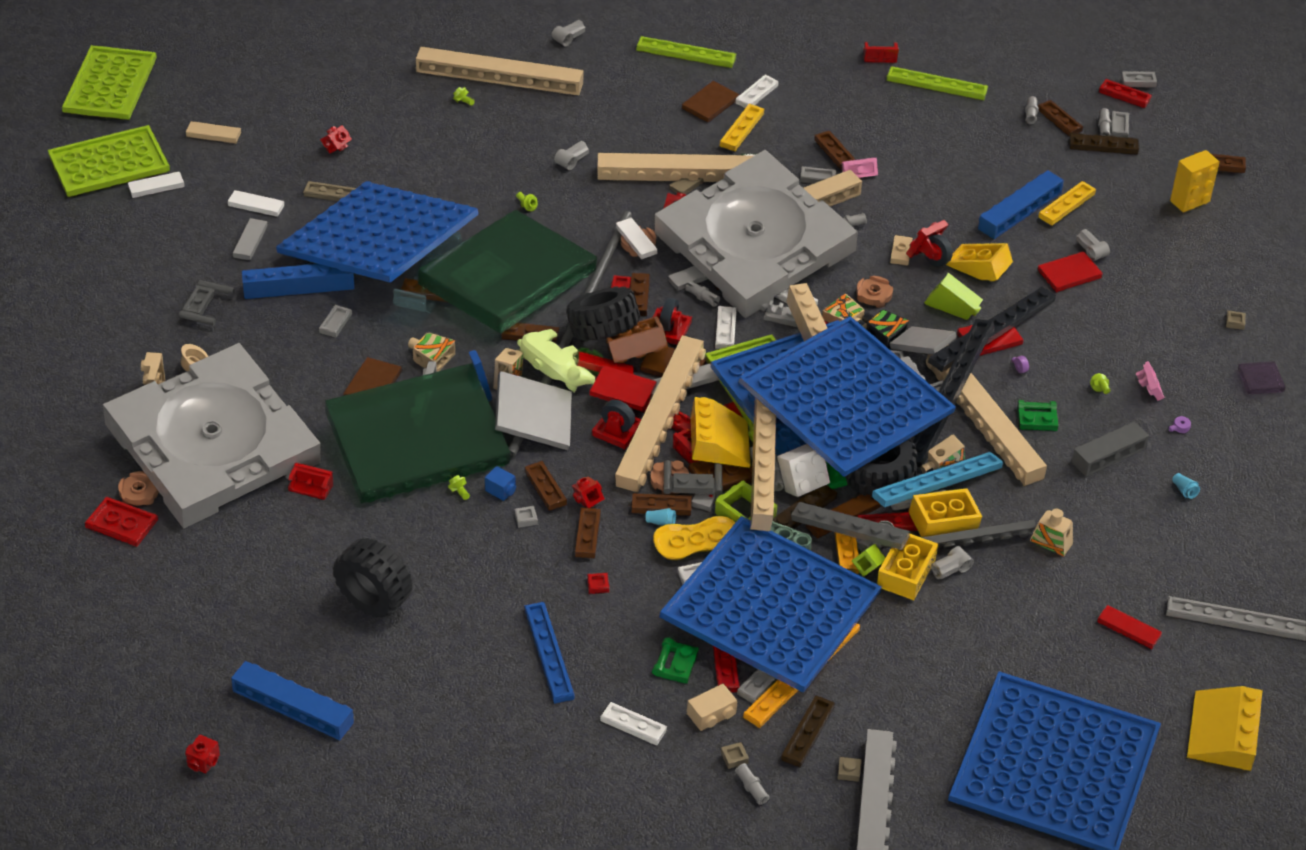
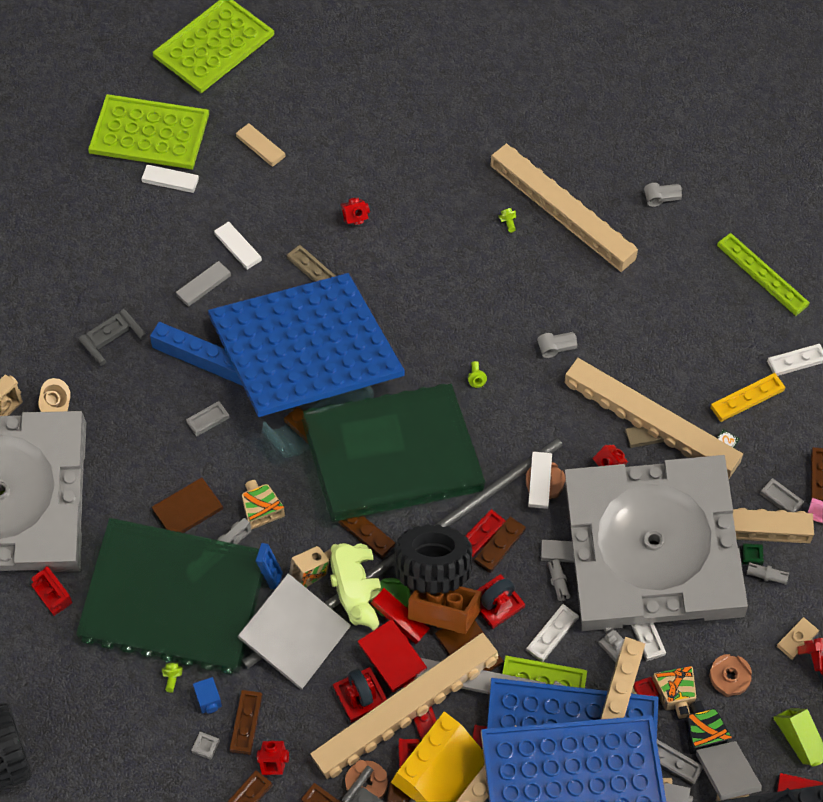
camera: 35 degrees right, 15 degrees up
(710, 101) = (741, 347): reddish brown tile -> none

